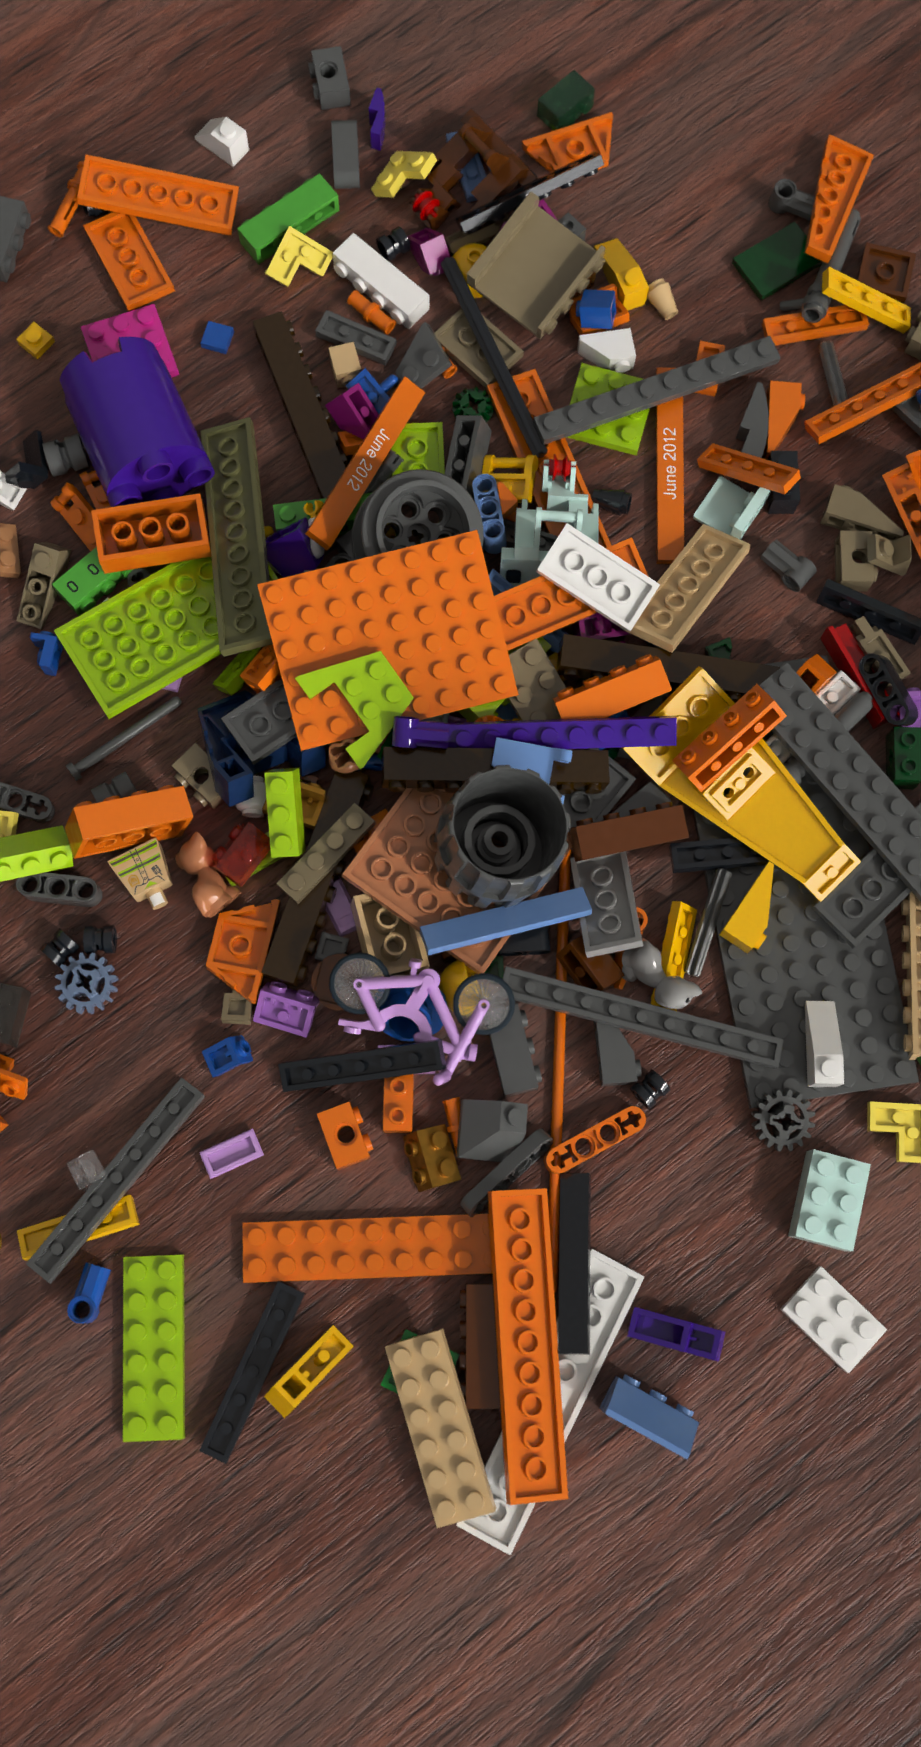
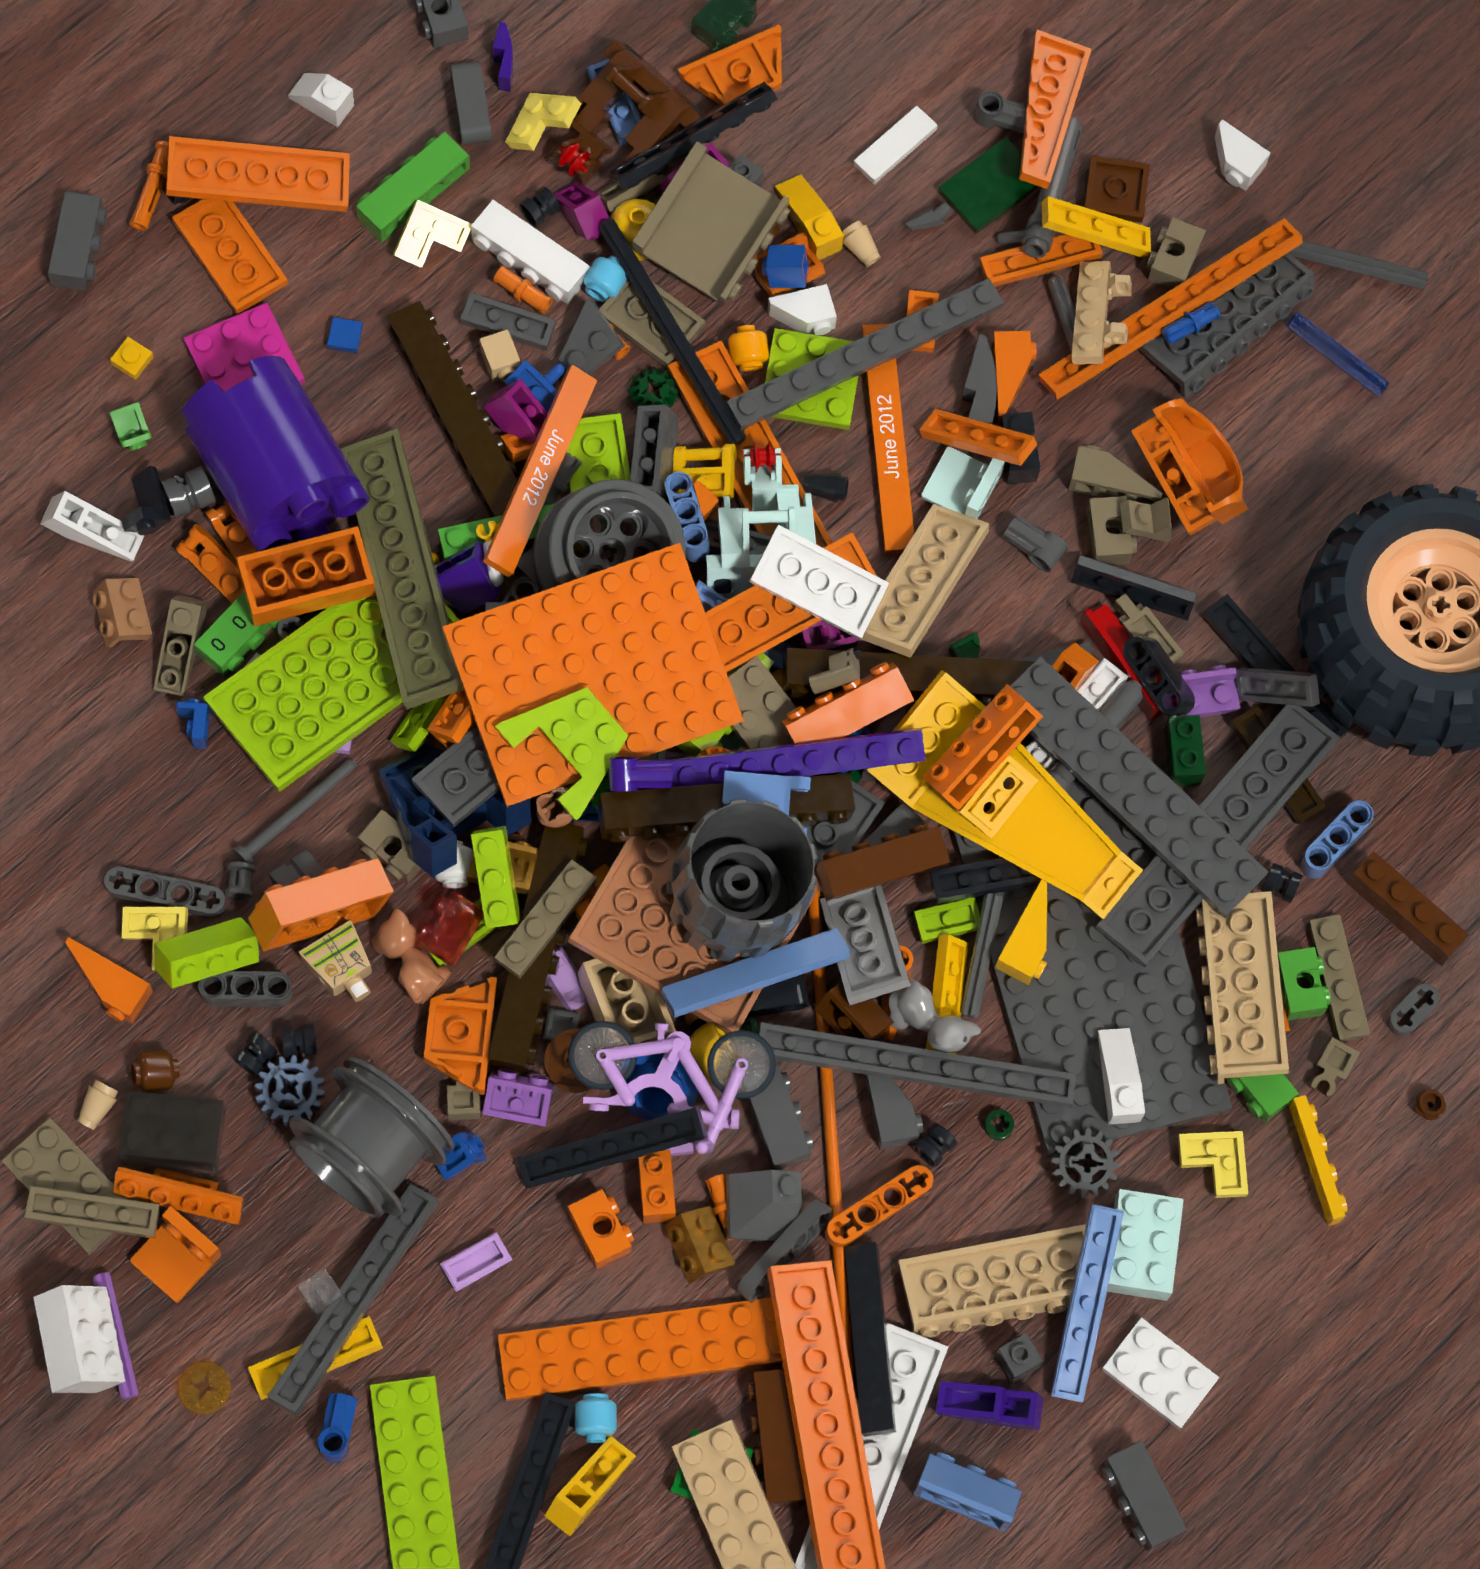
camera: 10 degrees left, 5 degrees down
(25, 396) = (130, 426): none -> bright green bracket
(67, 792) = (240, 880): none -> dark grey bush
(141, 1040) = (369, 1139): none -> dark grey wheel
(320, 1309) = (595, 1417): none -> medium azure head
(441, 308) = (604, 278): none -> medium azure head
(557, 377) = (748, 348): none -> light orange head
(611, 657) = (842, 670): none -> dark tan piece
(680, 887) = (950, 918): none -> lime plate
(698, 1219) = (991, 1281): none -> tan bracket
(699, 220) = (895, 145): none -> white tile
(707, 1294) = (1018, 1358): none -> dark grey brick
(716, 1072) = (1008, 1121): none -> dark green bush
(723, 283) = (929, 217): none -> dark grey bar
(774, 1251) = (1086, 1303): none -> medium blue tile
(809, 1436) = (1143, 1496): none -> dark grey brick
(854, 382) = (1091, 326): none -> tan hinge

